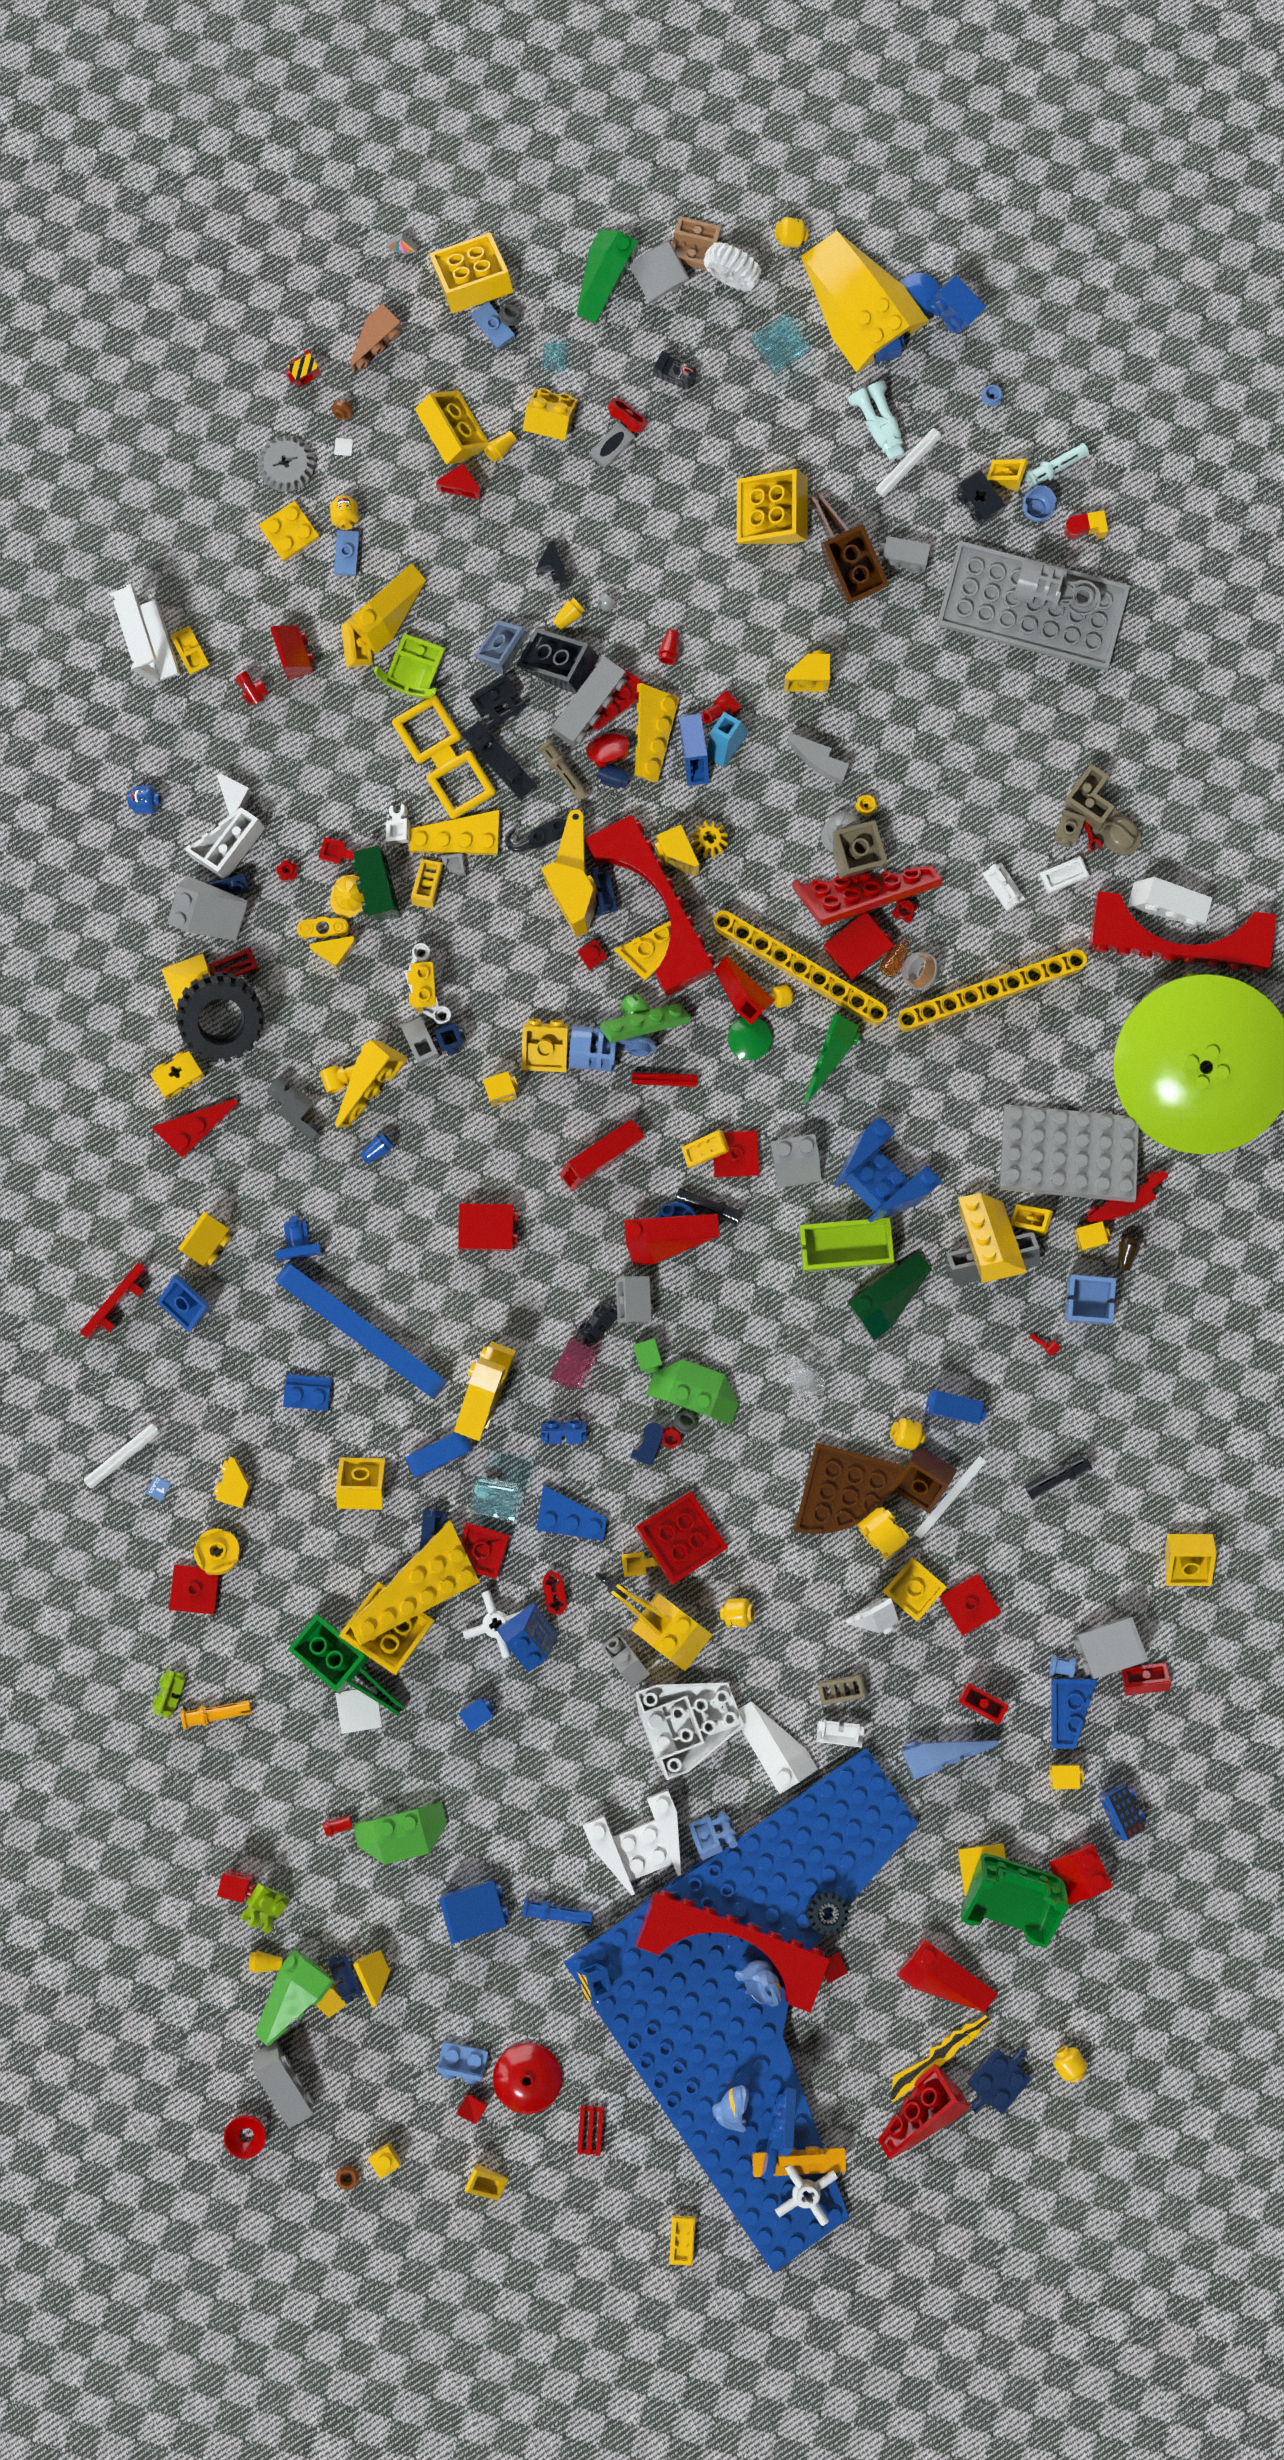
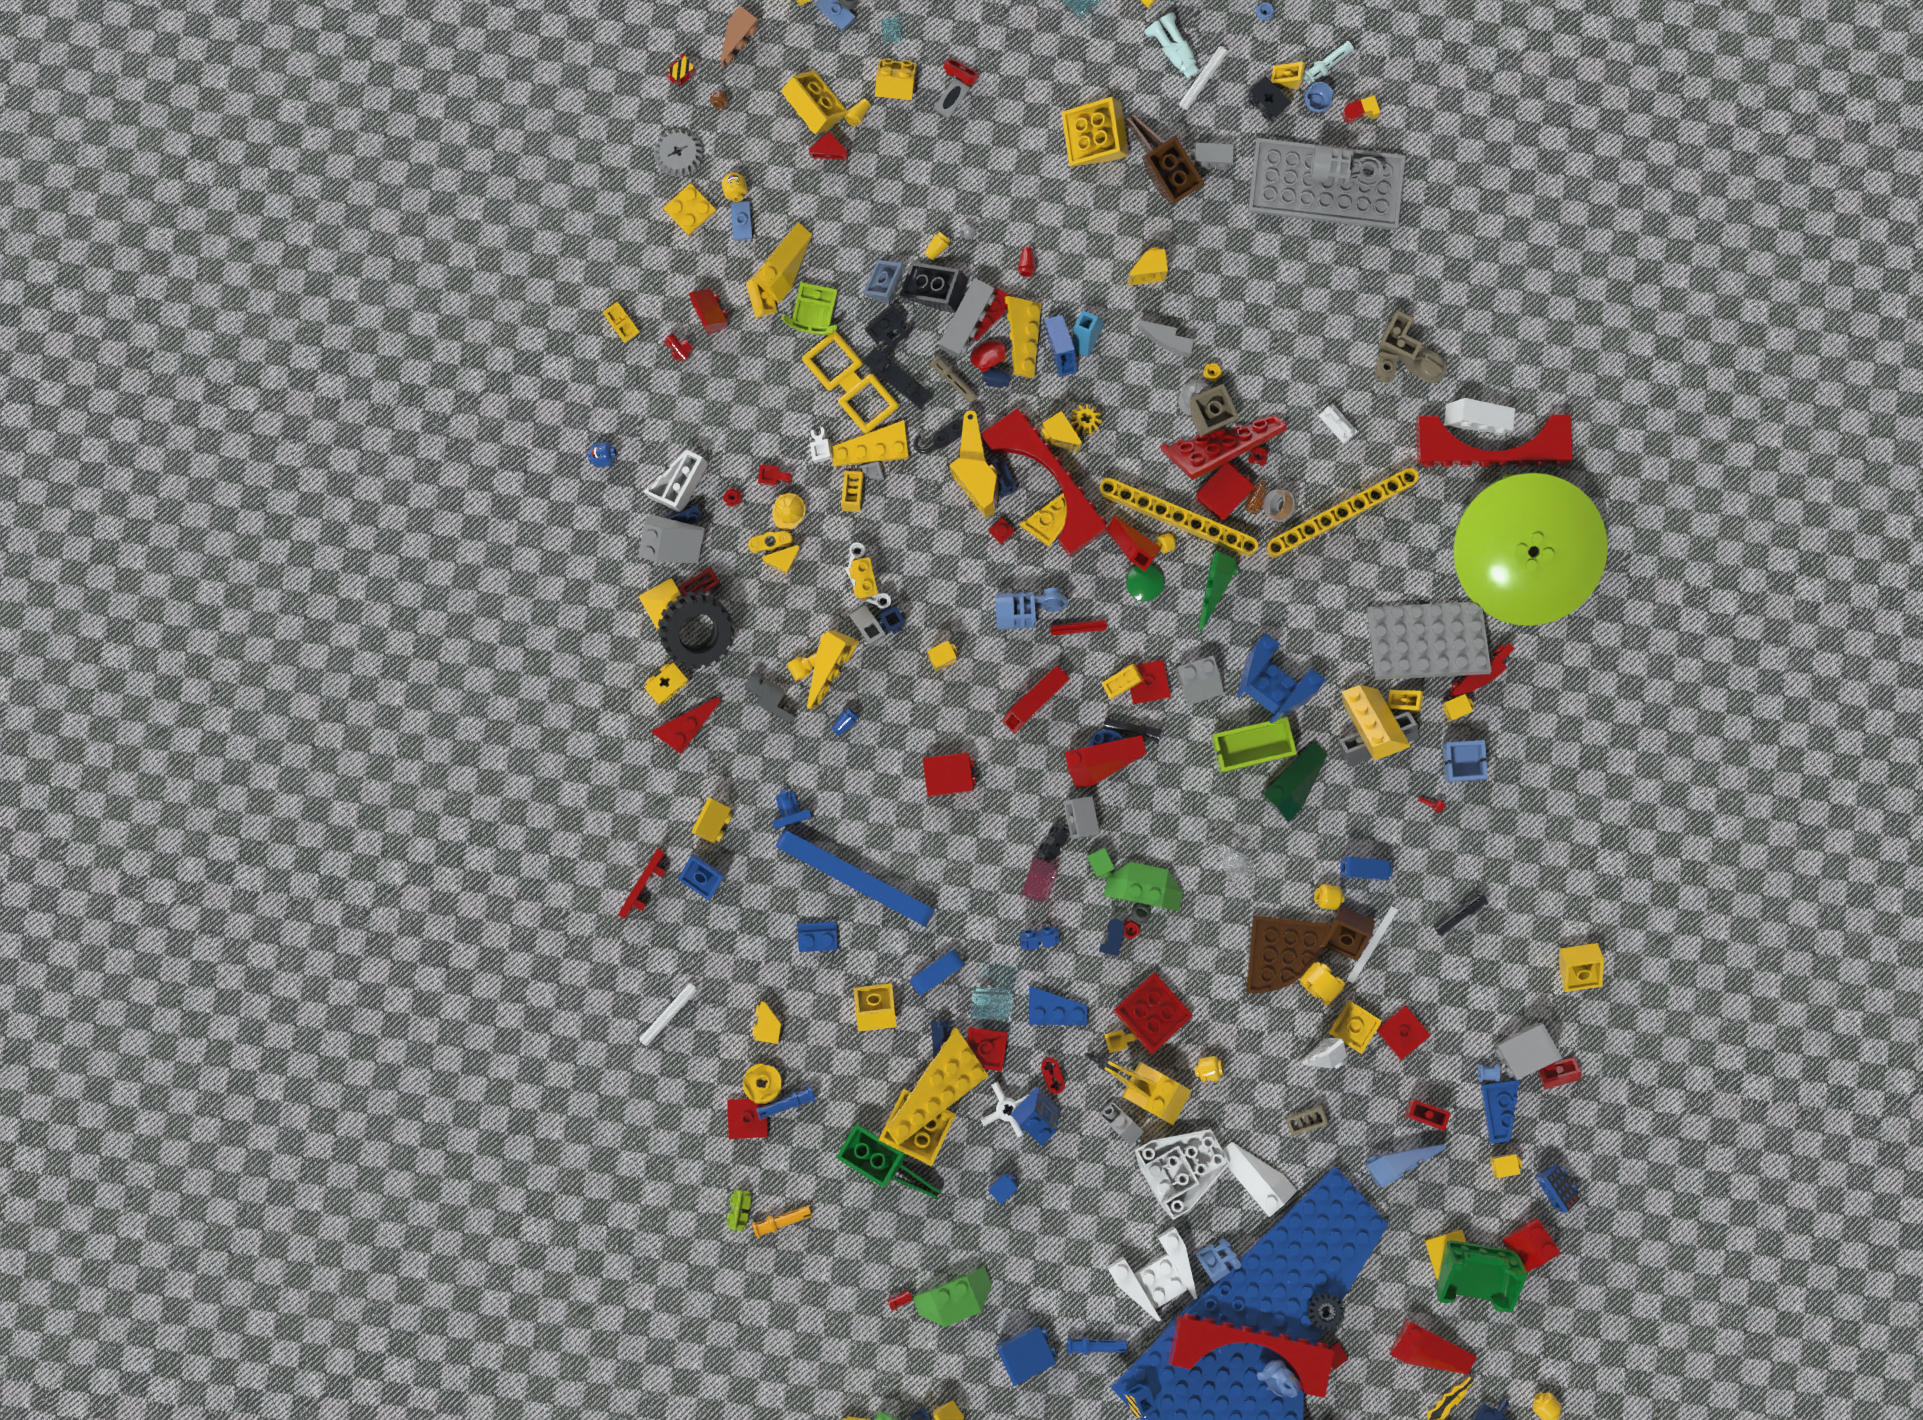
camera: 15 degrees left, 0 degrees up
(145, 636) = (583, 315): white piece -> none
(158, 1488) = (703, 1037): medium blue sticker -> none
(234, 793) = (678, 438): white slope -> none
(236, 1886) = (823, 1365): red brick -> none
(252, 1576) = (795, 1100): none -> blue pin
(268, 1902) = (848, 1378): lime plate -> none
(343, 446) = (724, 131): white sticker -> none
(357, 1711) = (901, 1200): white sticker -> none
(375, 884) = (810, 498): dark green slope -> none
(484, 1389) = (969, 912): yellow wedge -> none
(544, 1046) = (973, 614): yellow plate -> none
(551, 562) = (916, 203): black slope -> none
(642, 1019) = (1053, 580): bright green plate -> none
(674, 371) = (995, 29): black leg -> none
(724, 703) = (1080, 303): red pin -> none
(846, 1735) = (1305, 1159): white hinge -> none
(1064, 875) = (1387, 406): white tile -> none
(1091, 838) = (1405, 373): red hand -> none
(1127, 1252) = (1489, 716): dark brown cone -> none

